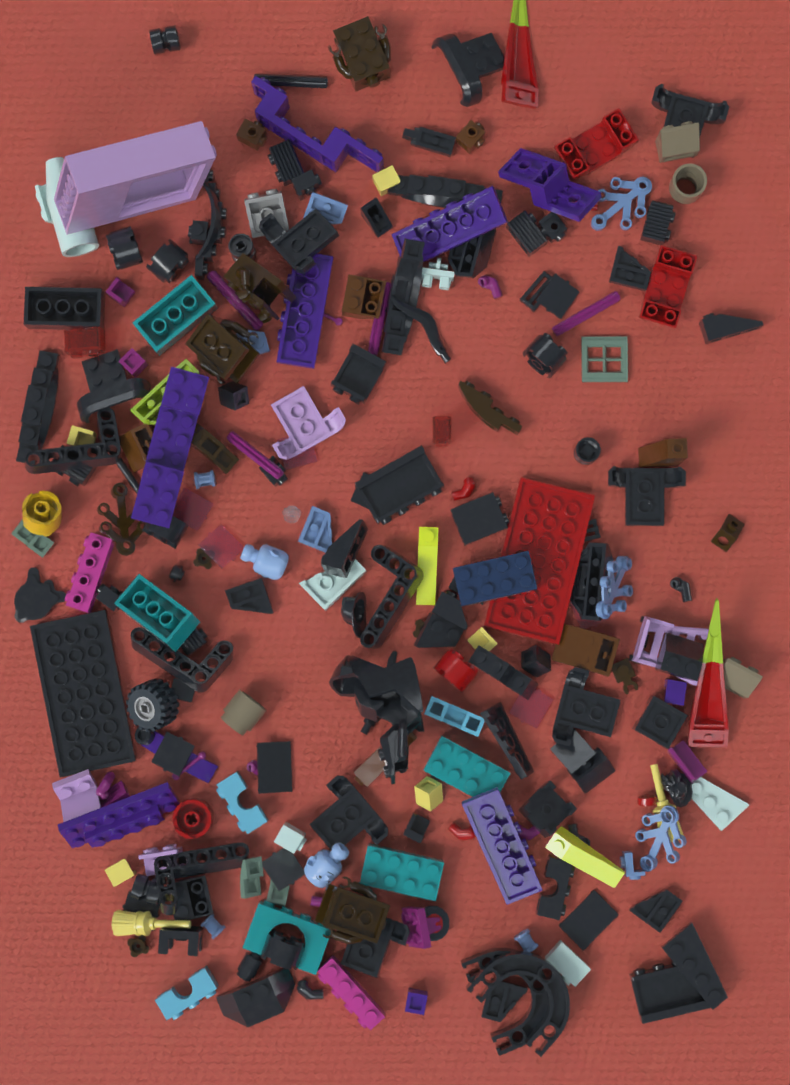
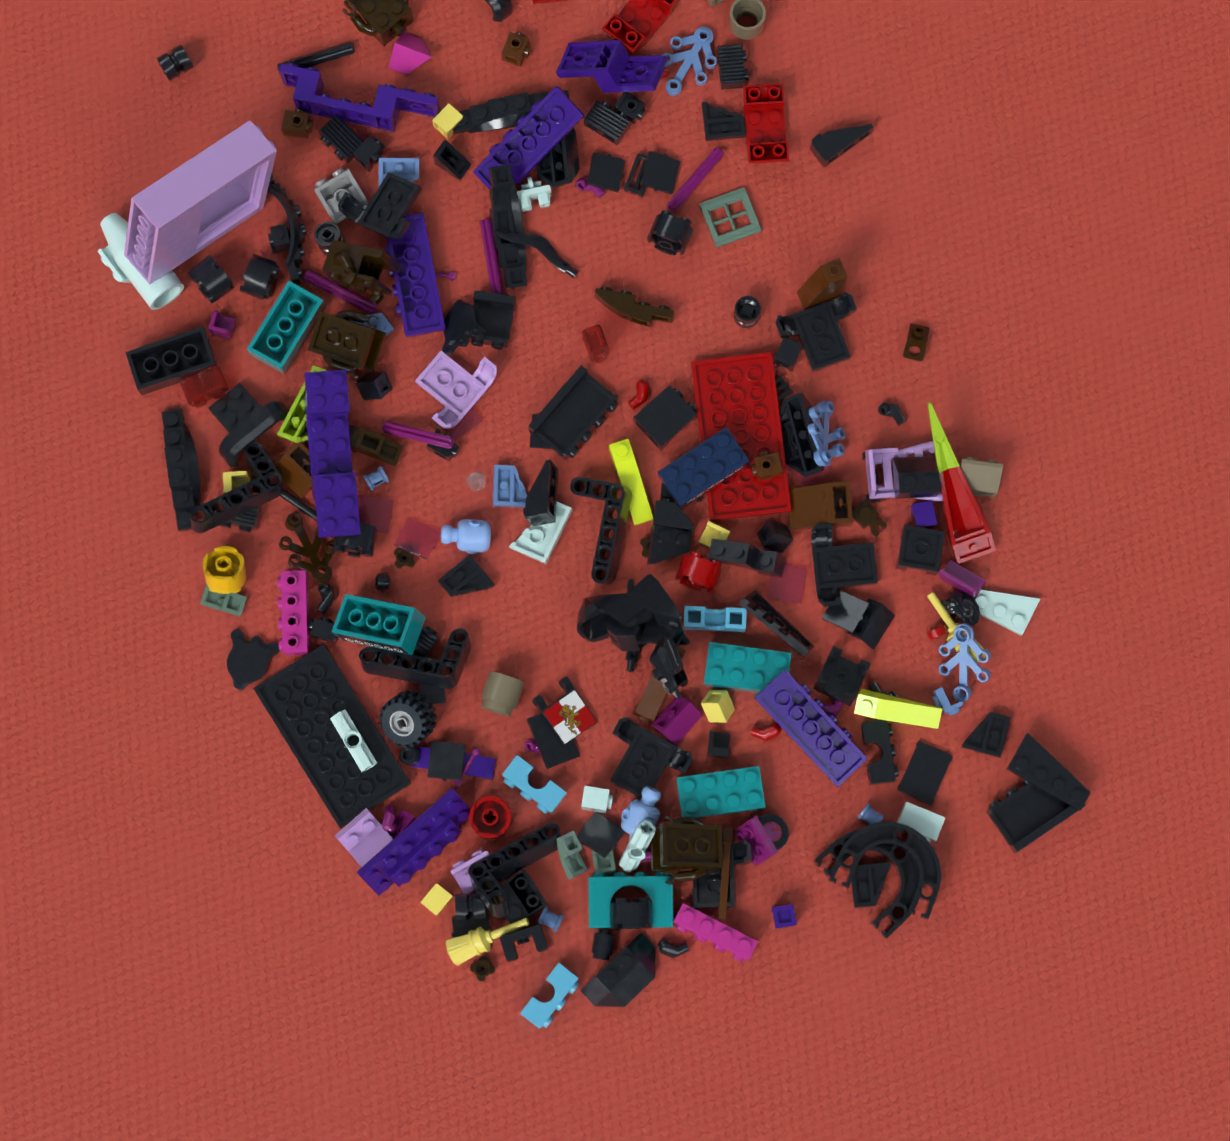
camera: 25 degrees left, 5 degrees down
(96, 693) = (346, 729): none -> light aqua piece
(124, 568) = (327, 597): none -> black arm
(133, 362) = (261, 388): magenta panel -> none
(295, 751) = (566, 715): none -> flag
(310, 893) = (637, 846): none -> light aqua piece
(329, 370) = (460, 325): none -> black tile
(354, 612) = (575, 554): black piece -> none
(363, 297) = (468, 242): reddish brown slope -> none
(374, 106) = (408, 54): none -> dark pink slope
(386, 795) = (677, 719): none -> magenta panel
(393, 913) = (727, 839): none -> reddish brown piece
(430, 140) = (476, 67): black hinge -> none
(509, 278) = (605, 172): none -> black piece
(551, 597) = (766, 466): none -> reddish brown brick
(609, 501) = (787, 353): none -> black panel

